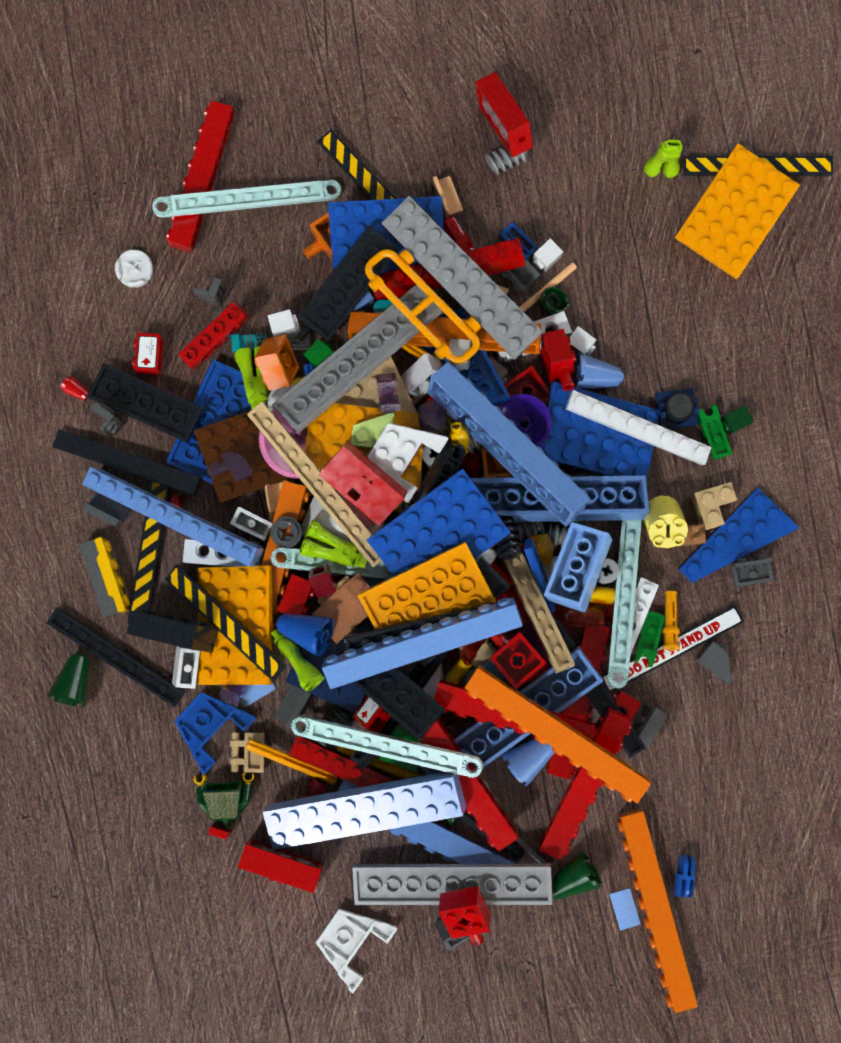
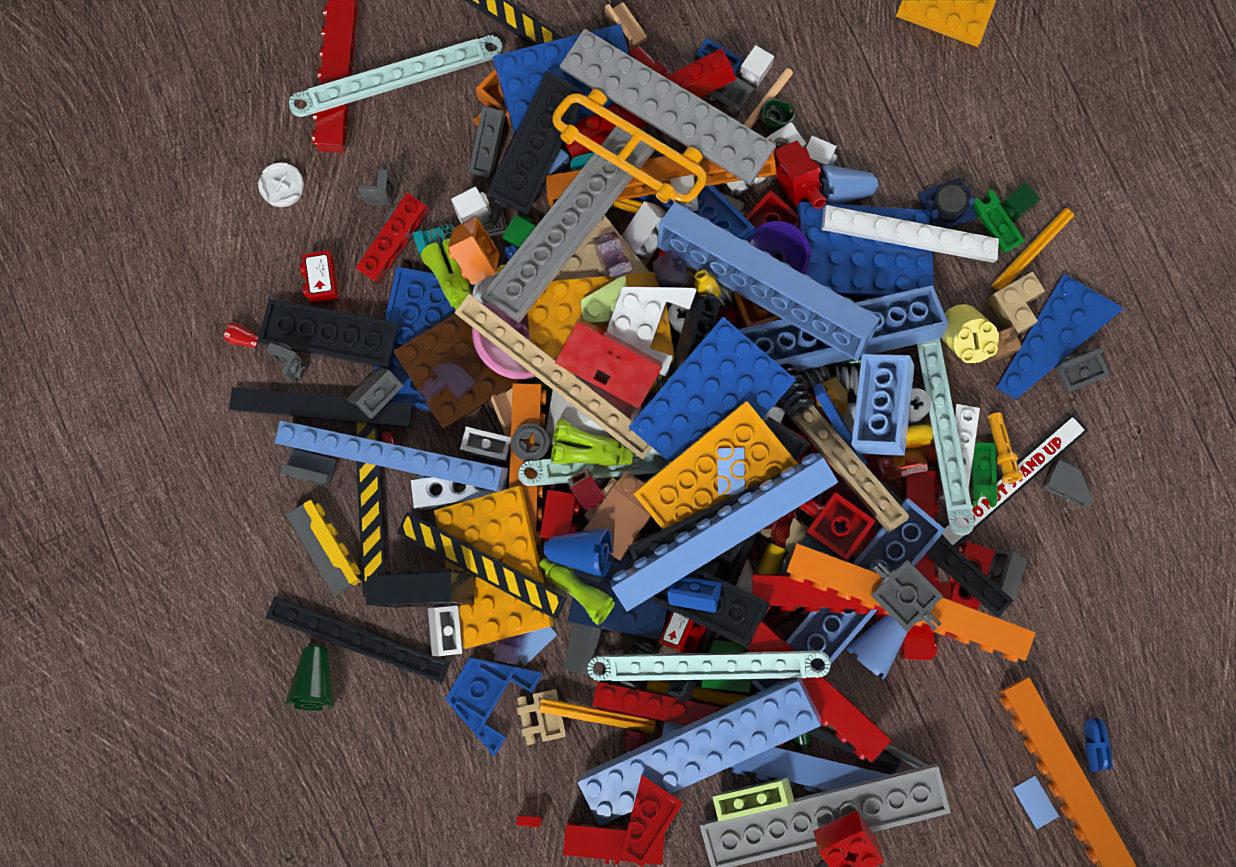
camera: 10 degrees left, 5 degrees down
(172, 460) = (375, 392): none -> dark grey panel
(223, 799) = (526, 779): dark green torso -> none
(309, 271) = (487, 141): none -> dark grey plate
(312, 855) = (649, 820): none -> red wing
(388, 687) = (695, 594): none -> blue slope
(399, 857) = (753, 799): none -> yellowish green brick
(435, 593) = (724, 469): none -> light blue sticker
(554, 730) = (906, 595): none -> dark grey plate
(575, 878) = (969, 776): dark green cone -> none
(582, 789) = (951, 668): red brick -> none
(737, 462) = (1033, 249): none -> light orange axle

